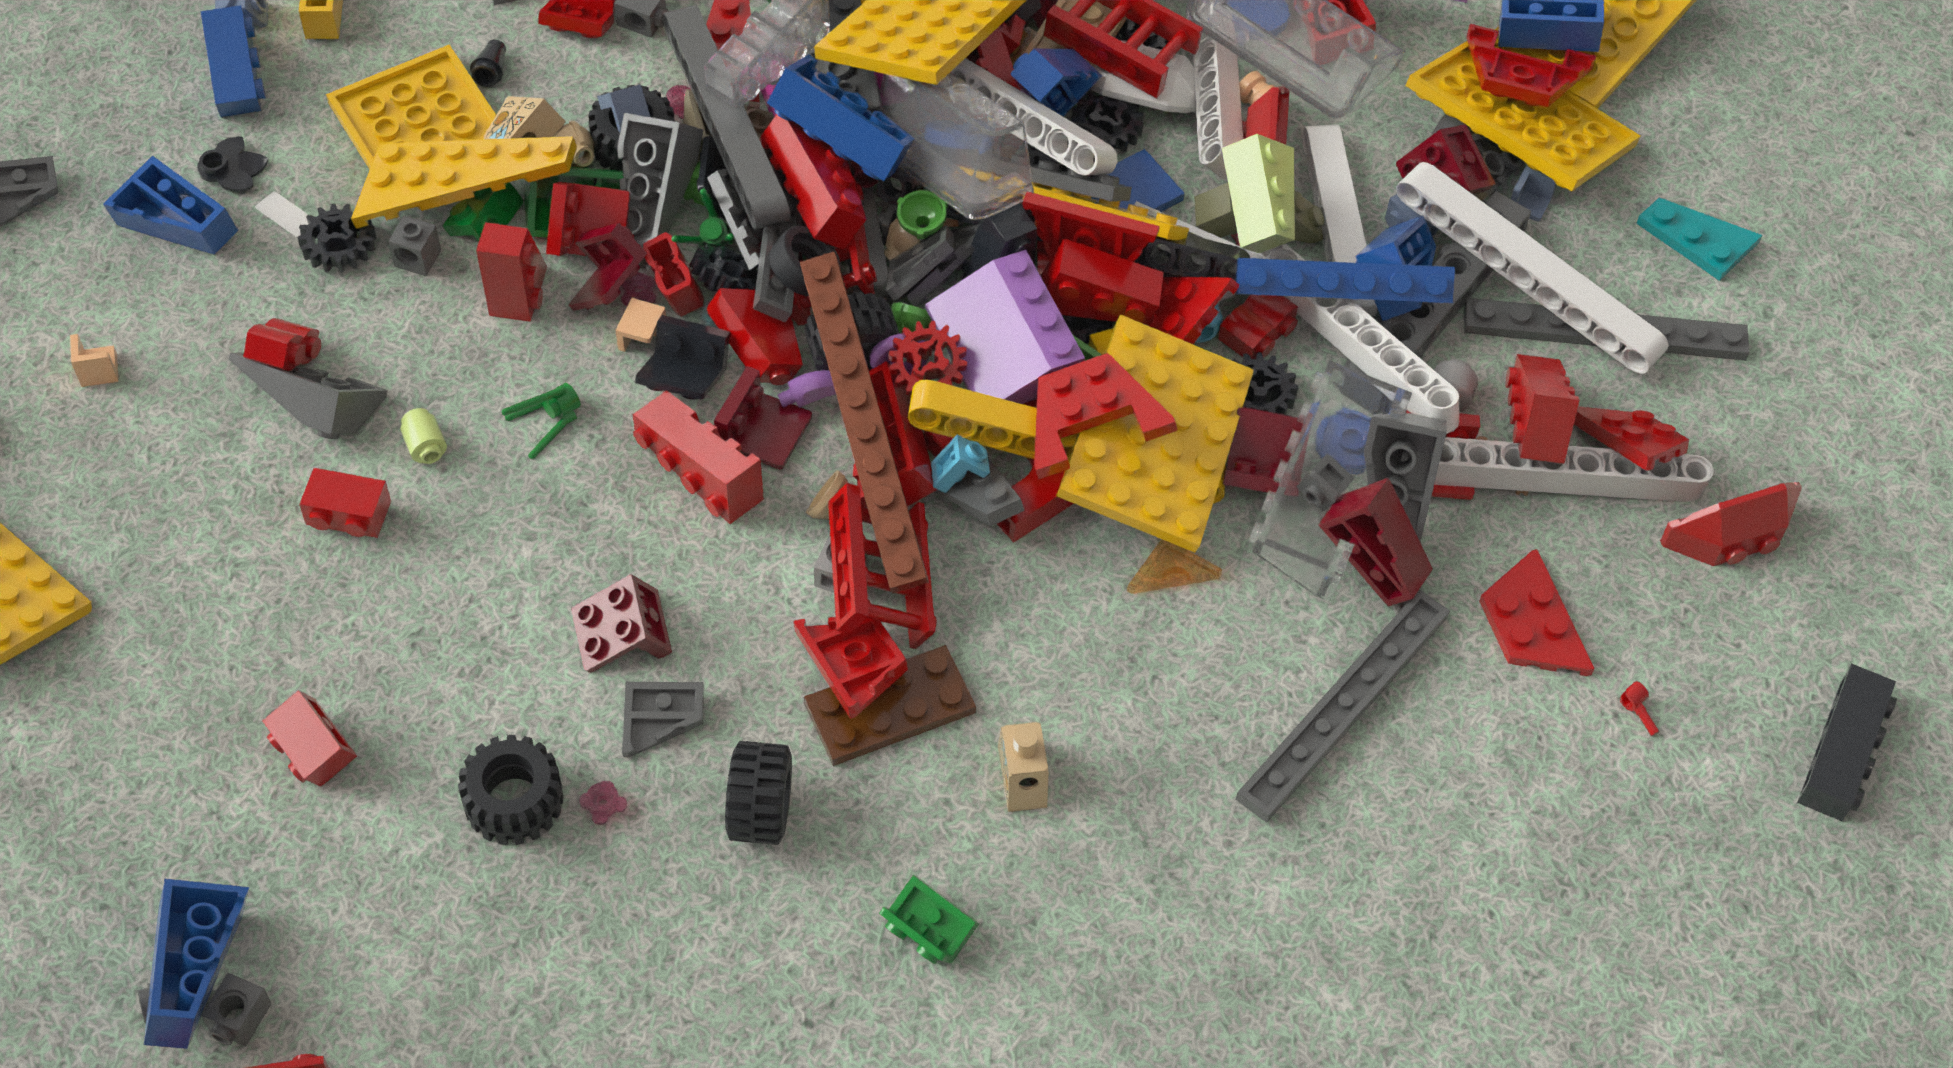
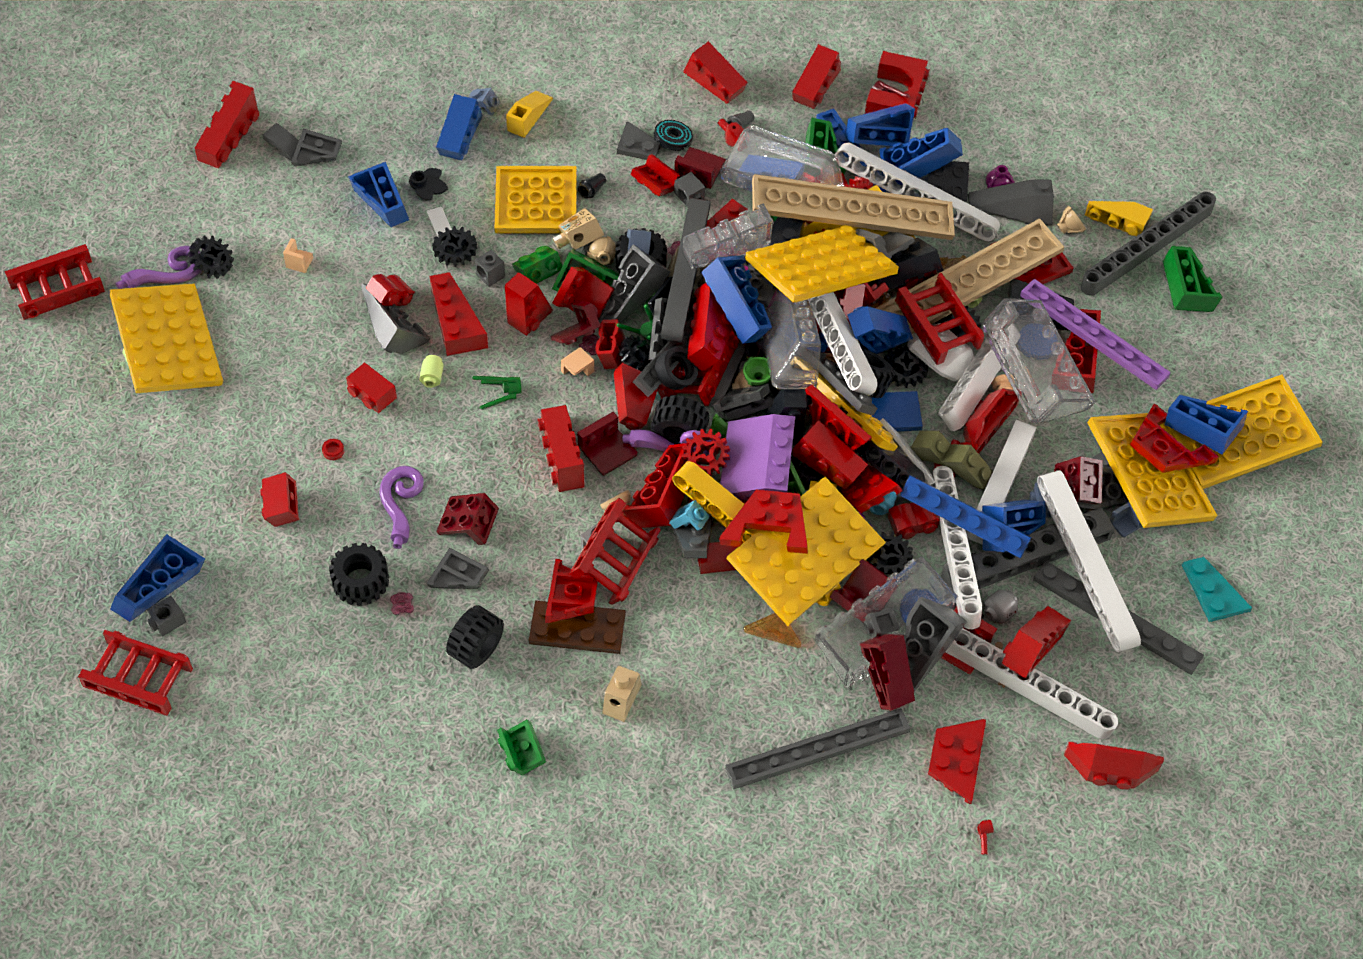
camera: 30 degrees right, 0 degrees up
(340, 624) = (333, 449): none -> red tile
(408, 340) = (456, 319): none -> red wedge
(450, 171) = (527, 235): yellow wing -> none
(526, 688) = (401, 527): none -> medium lavender plant
(686, 358) = (589, 394): black bracket -> none
(864, 423) = (648, 470): copper plate -> none
(1261, 191) = (951, 444): yellowish green wedge -> none
(1633, 434) = (1083, 683): red wing -> none
(1847, 743) = (1090, 915): black brick -> none

